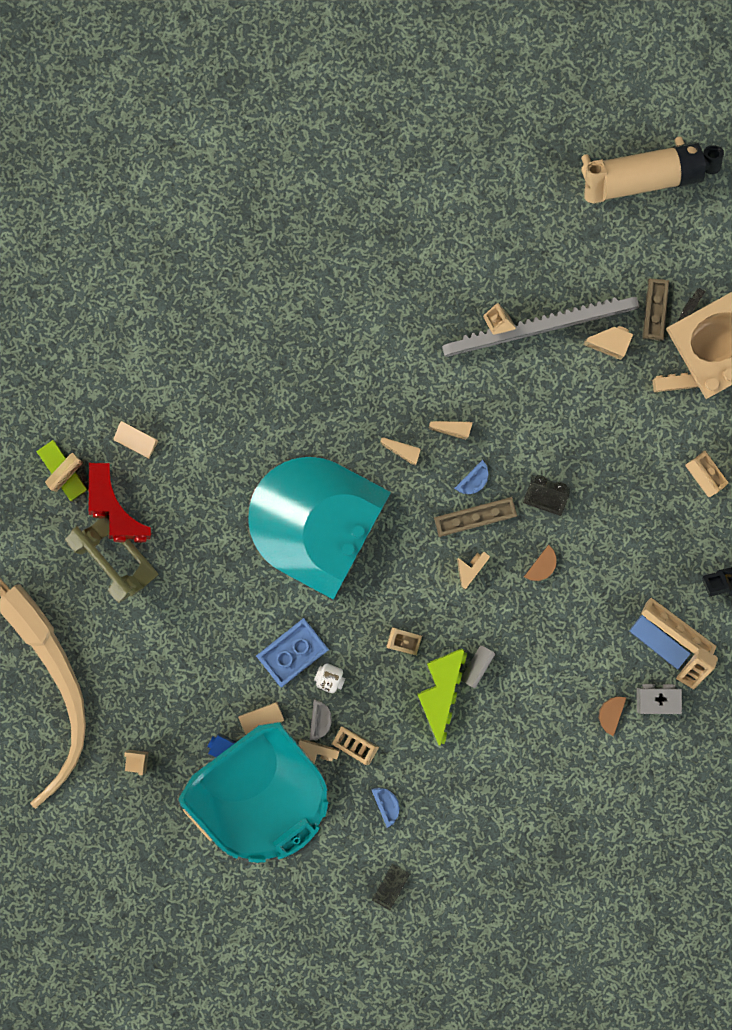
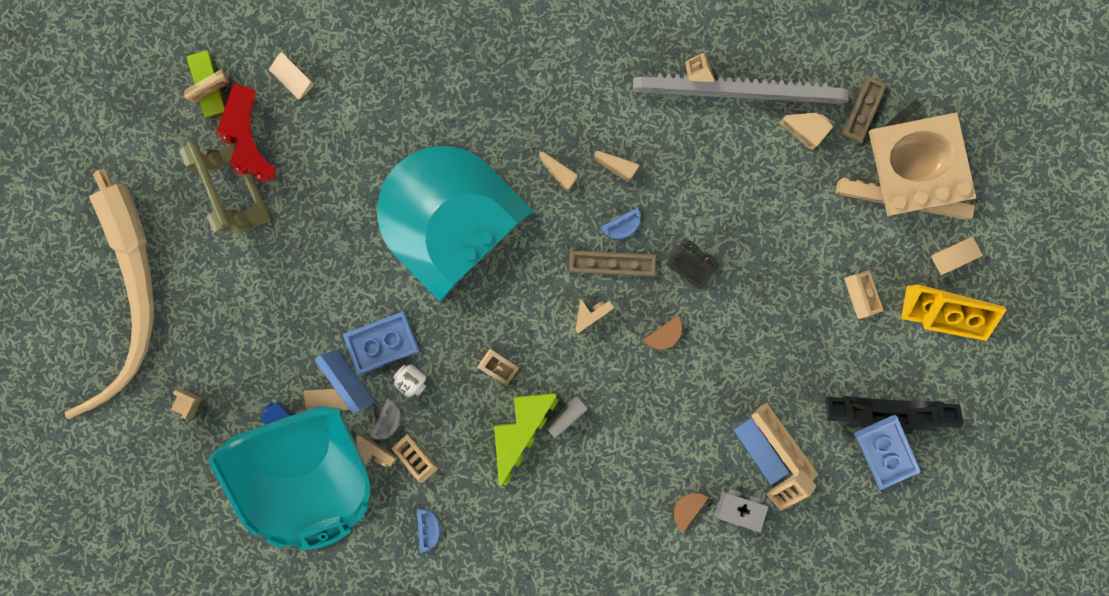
camera: 15 degrees right, 0 degrees up
(273, 696) = (344, 381): none -> medium blue tile

